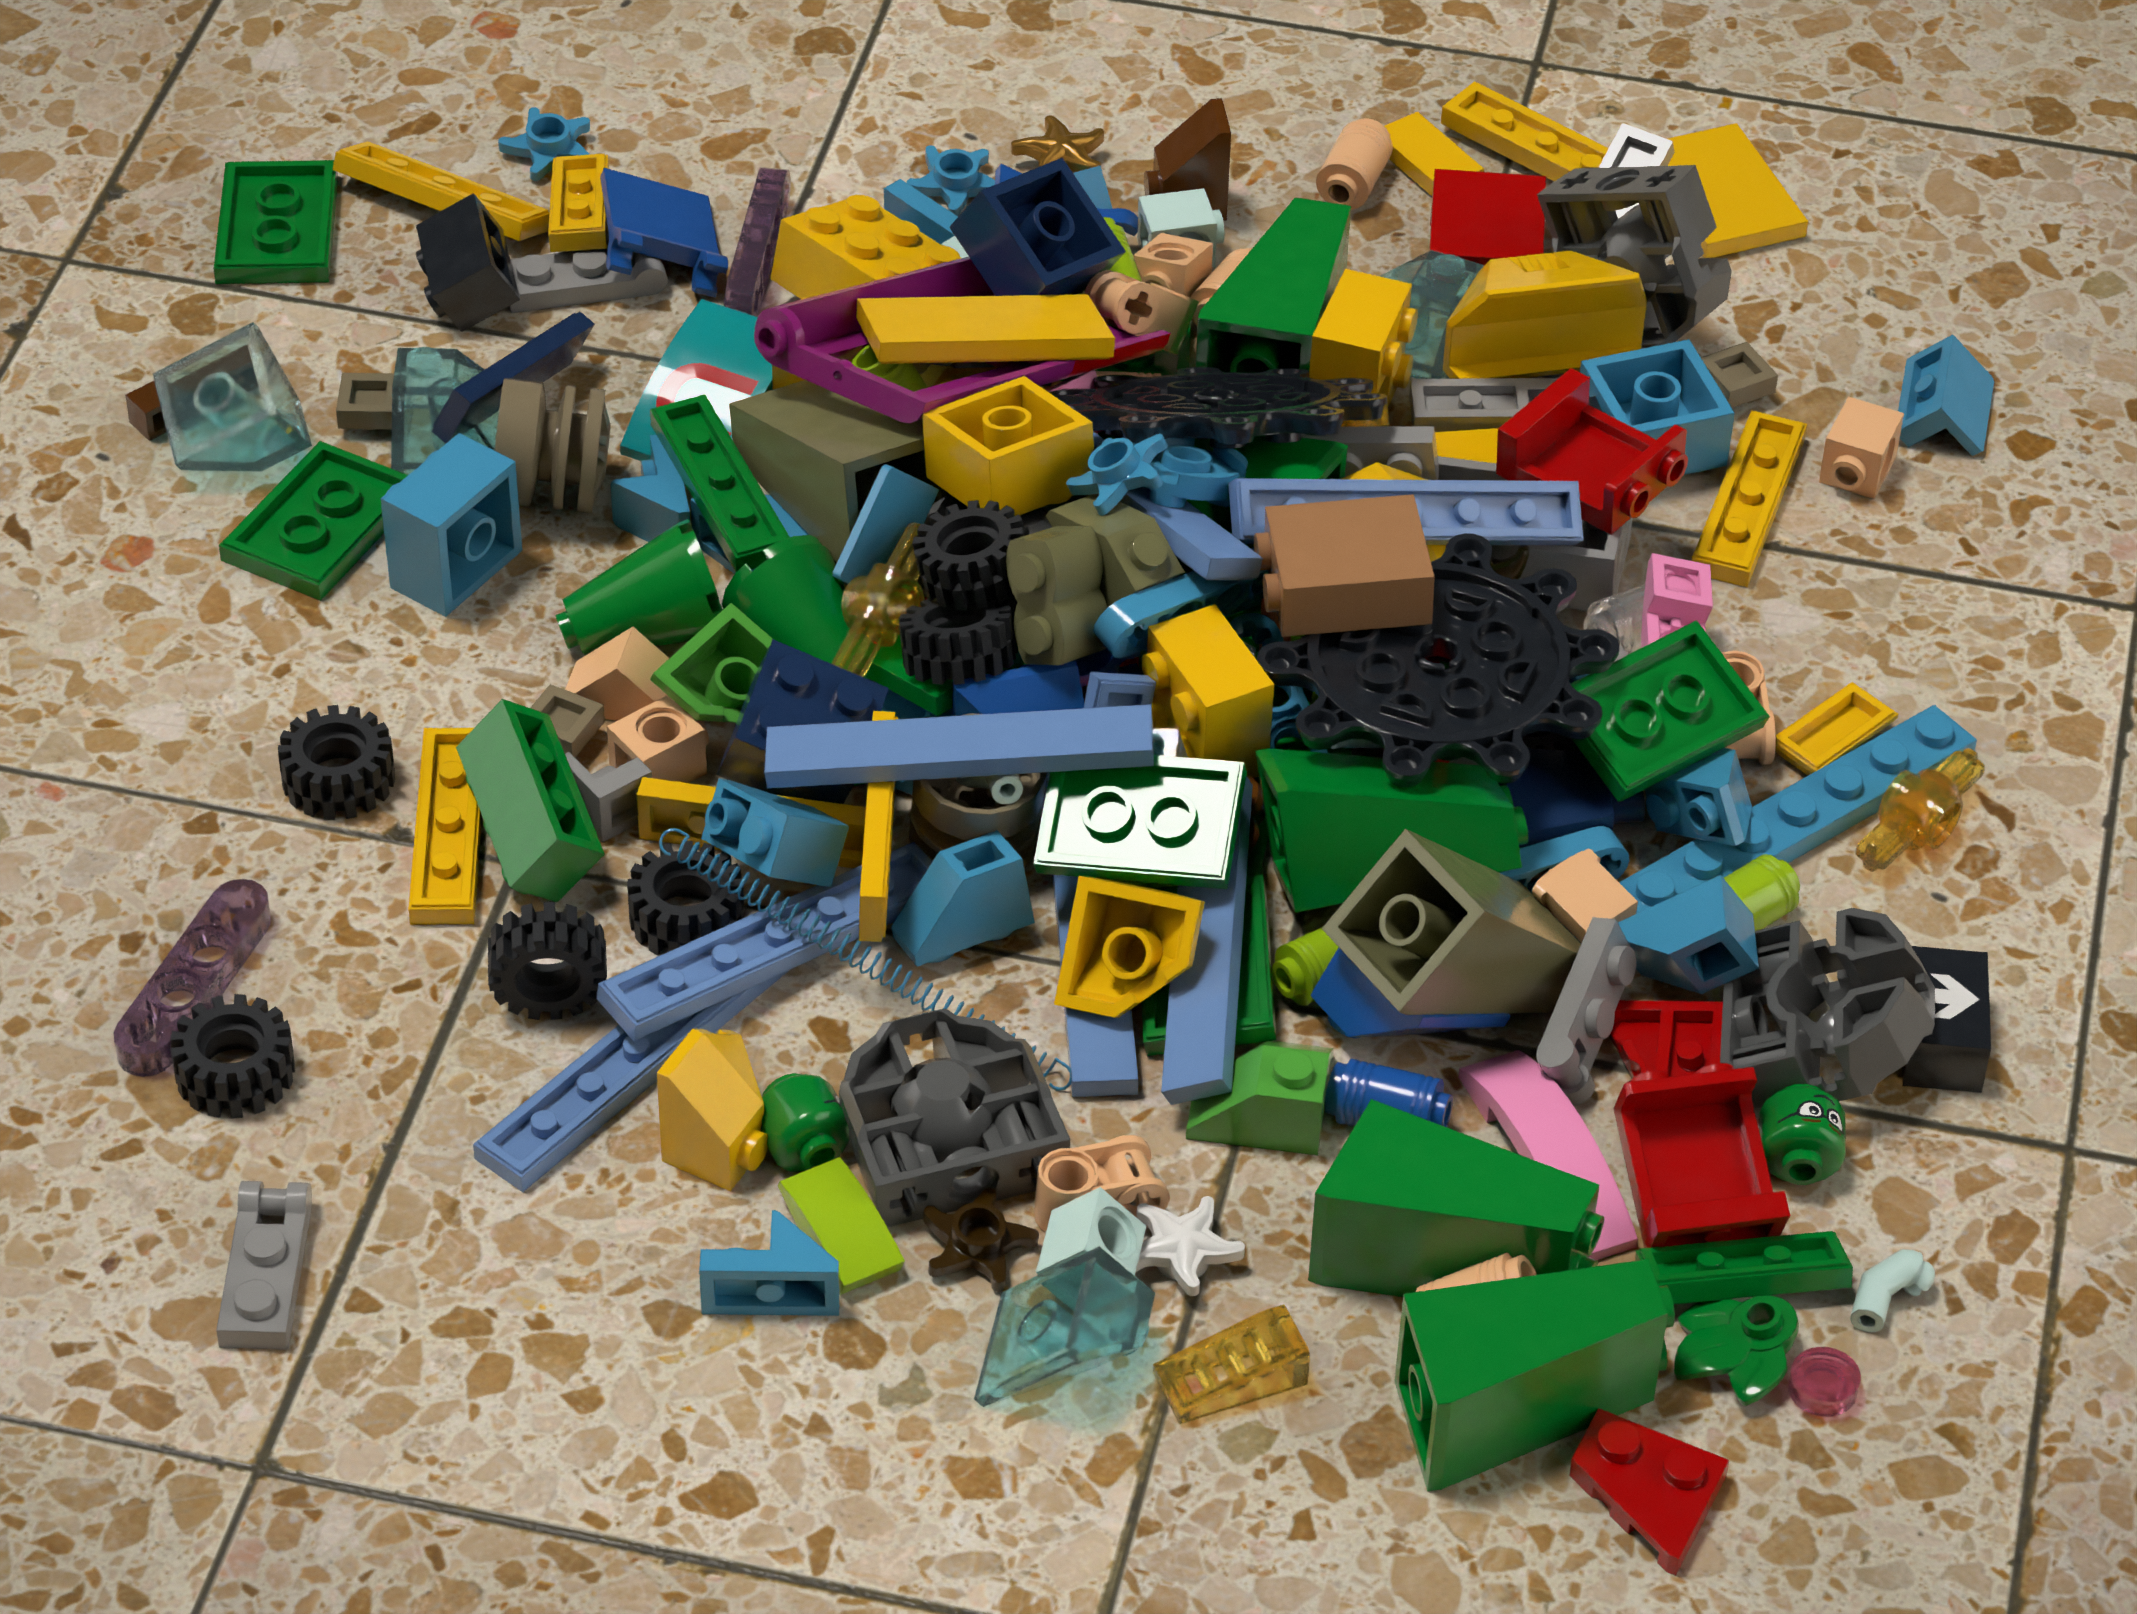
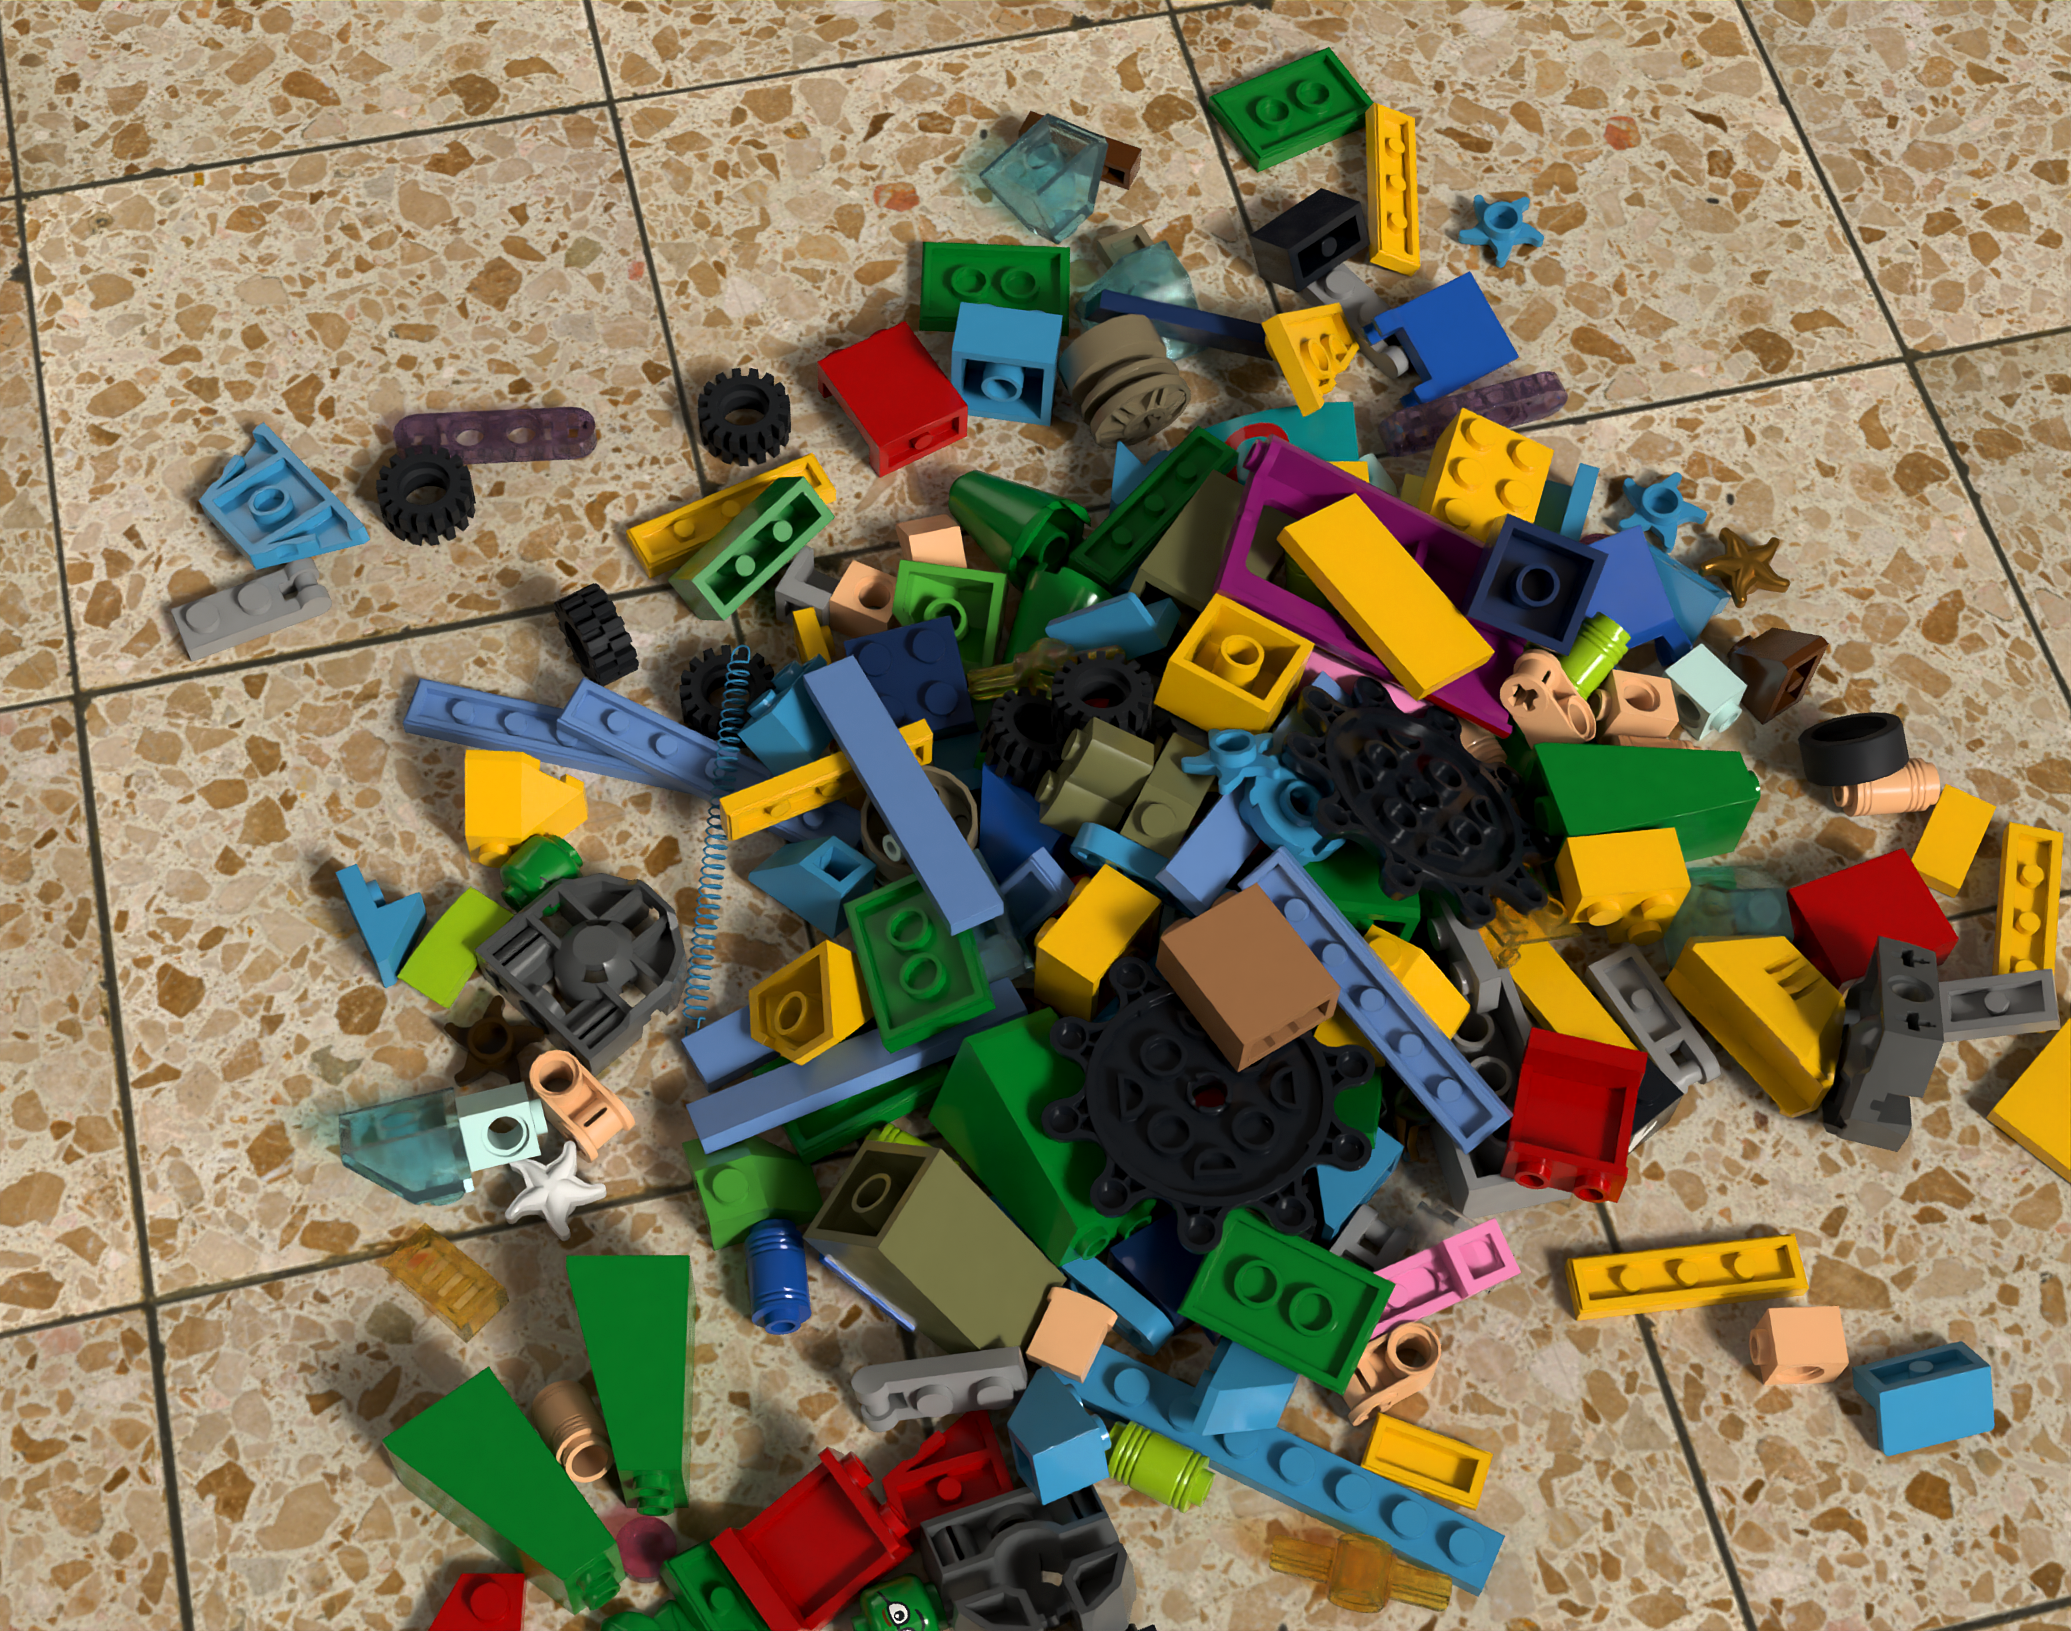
camera: 60 degrees right, 15 degrees up
(152, 1182) = (278, 506): none -> dark azure wing
(406, 630) = (894, 397): none -> red panel
(572, 715) = (867, 533): dark tan plate -> none
(577, 203) = (1412, 278): yellow tile -> none
(609, 298) = (1311, 351): none -> yellow wing
(1314, 154) = (1853, 749): none -> black tyre
(1550, 1131) = (787, 1425): bright pink slope -> none
(1666, 388) = (1713, 1152): dark azure brick -> none
(1741, 374) = (1830, 1203): dark tan plate -> none

